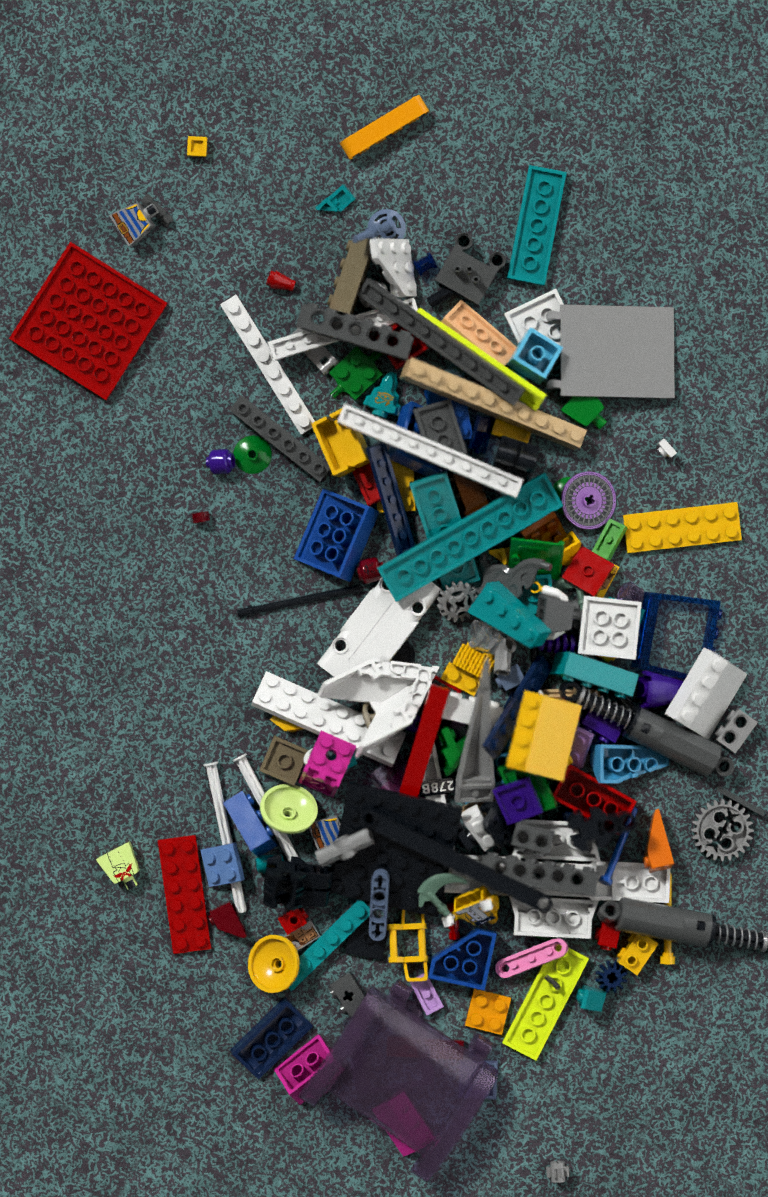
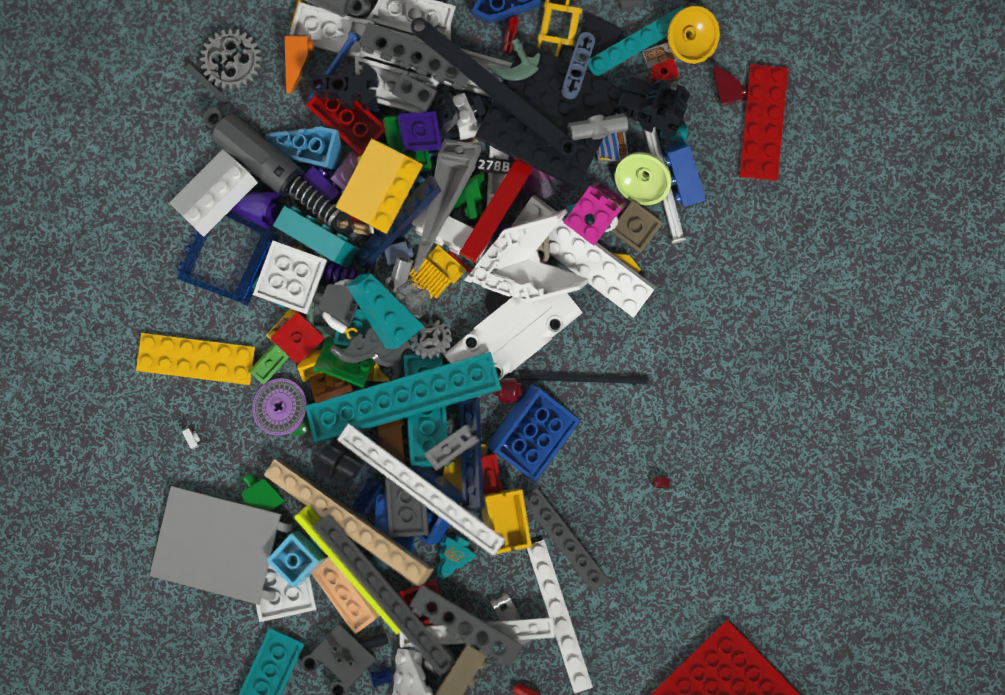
camera: 160 degrees left, 5 degrees down
(120, 865) = (819, 164): yellowish green torso -> none
(220, 461) = (628, 532): dark purple head -> none
(222, 864) = (720, 141): medium blue plate -> none
(224, 828) = (710, 168): white axle -> none
(259, 462) = (586, 535): green dish -> none
(355, 373) = (476, 586): green plate -> none
(411, 499) = (451, 447): none -> light grey plate
(474, 907) = (487, 42): torso -> none
(502, 428) = (345, 496): yellow tile -> none
(630, 592) = (261, 307): clear purple slope -> none
(740, 733) = (189, 146): light grey brick -> none

